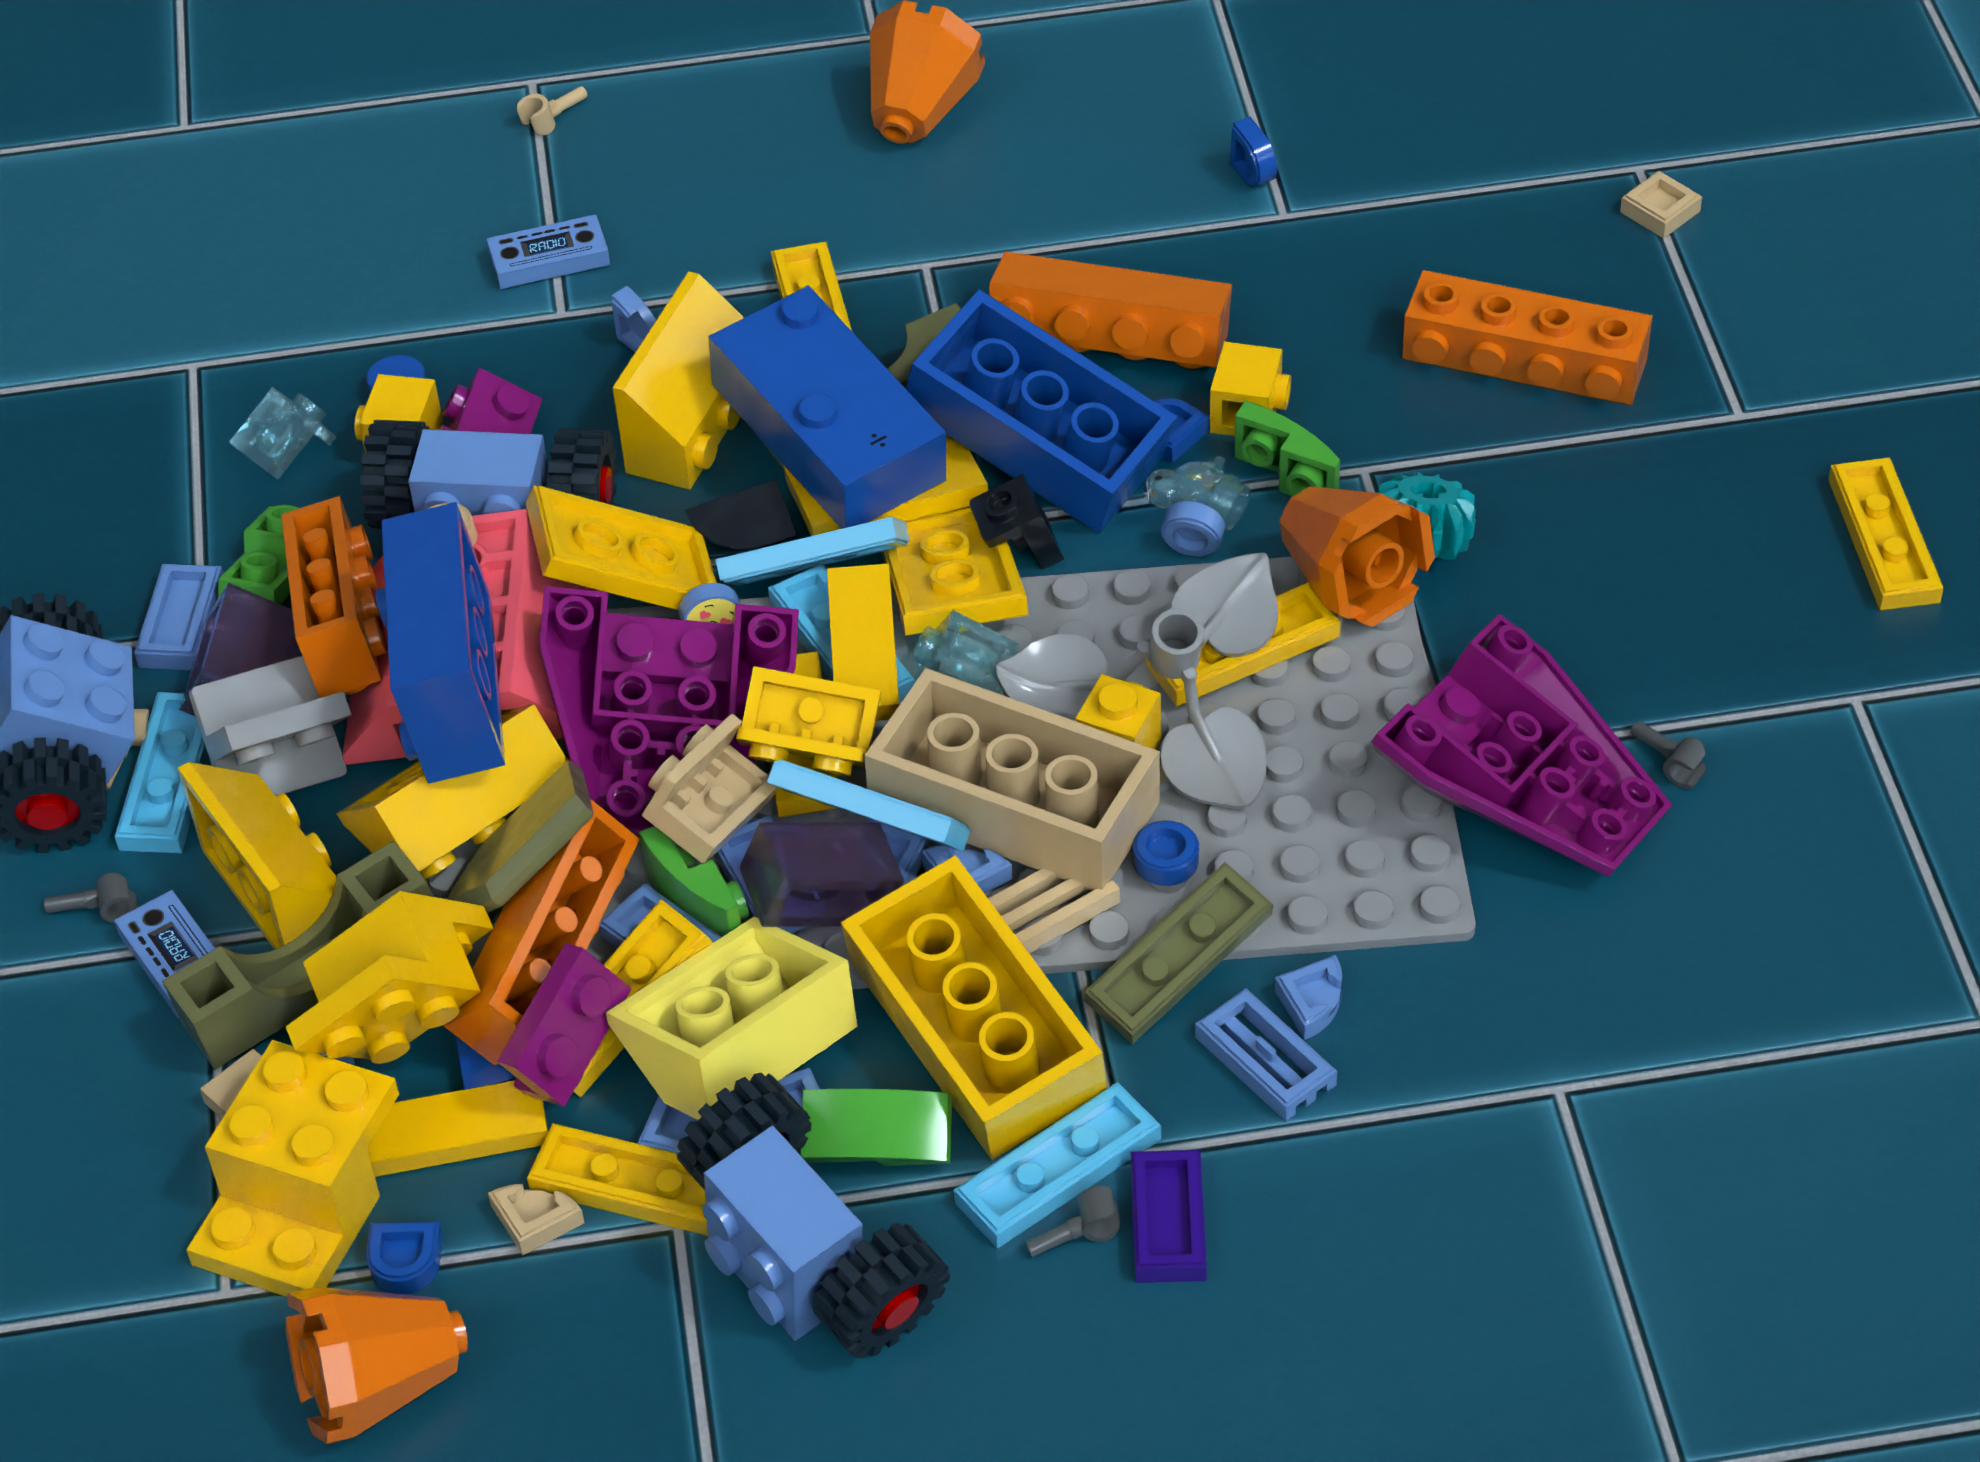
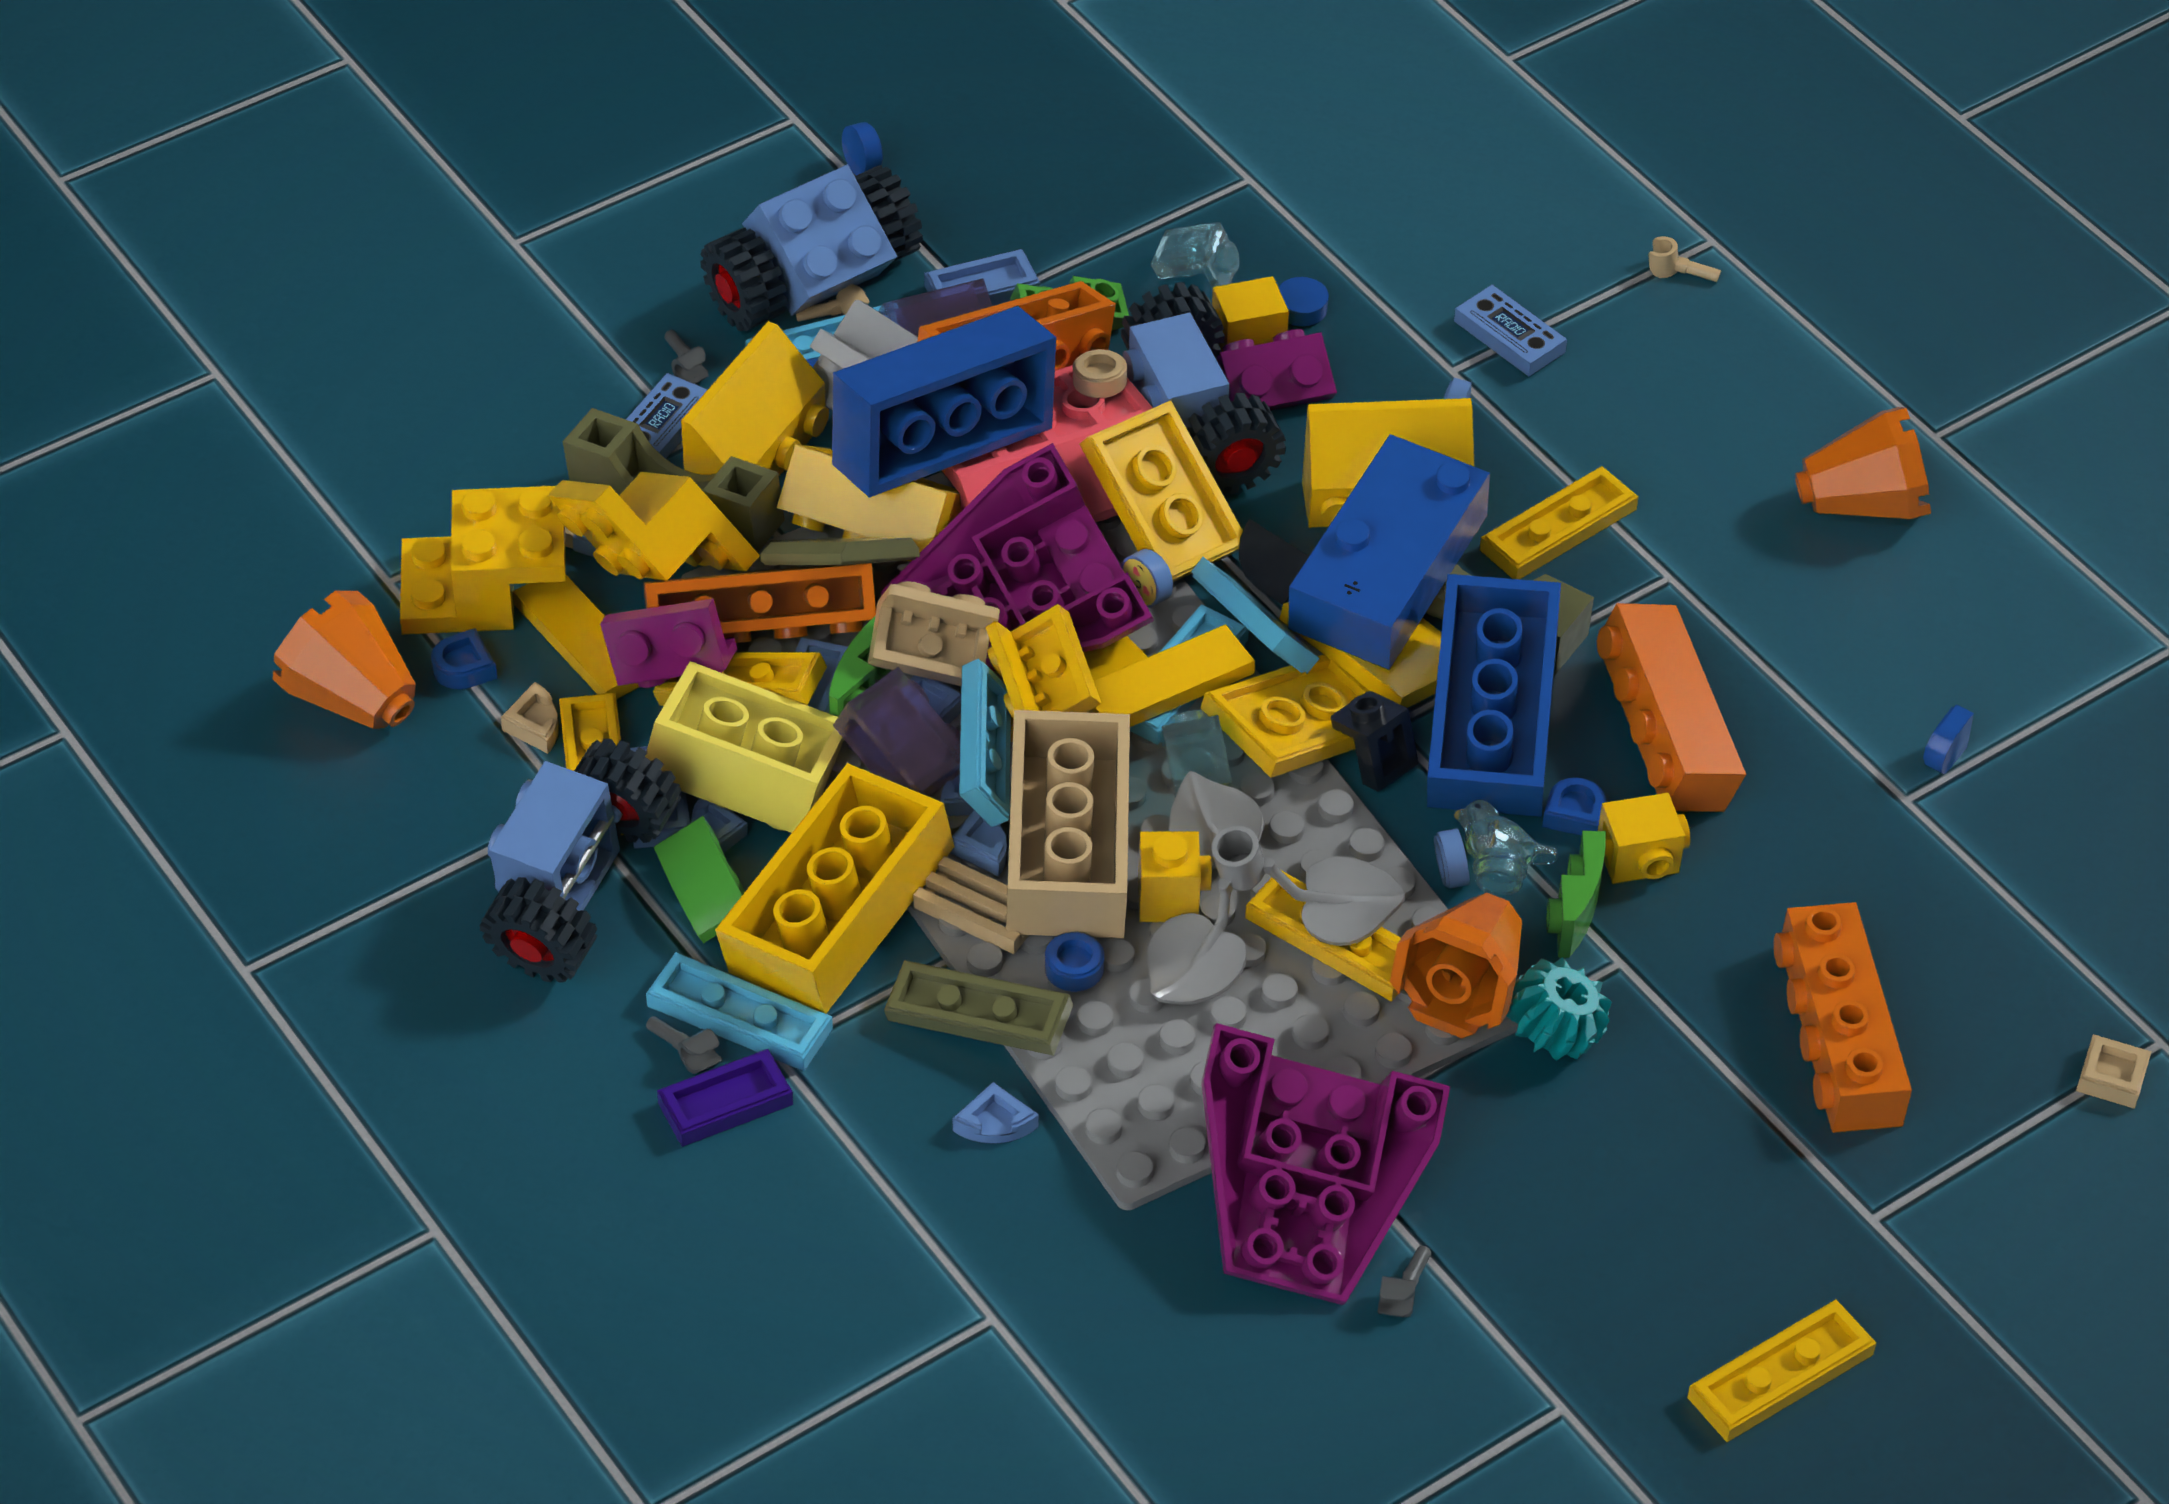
camera: 60 degrees right, 0 degrees up
(1283, 1098) = (899, 1141): medium blue tile -> none

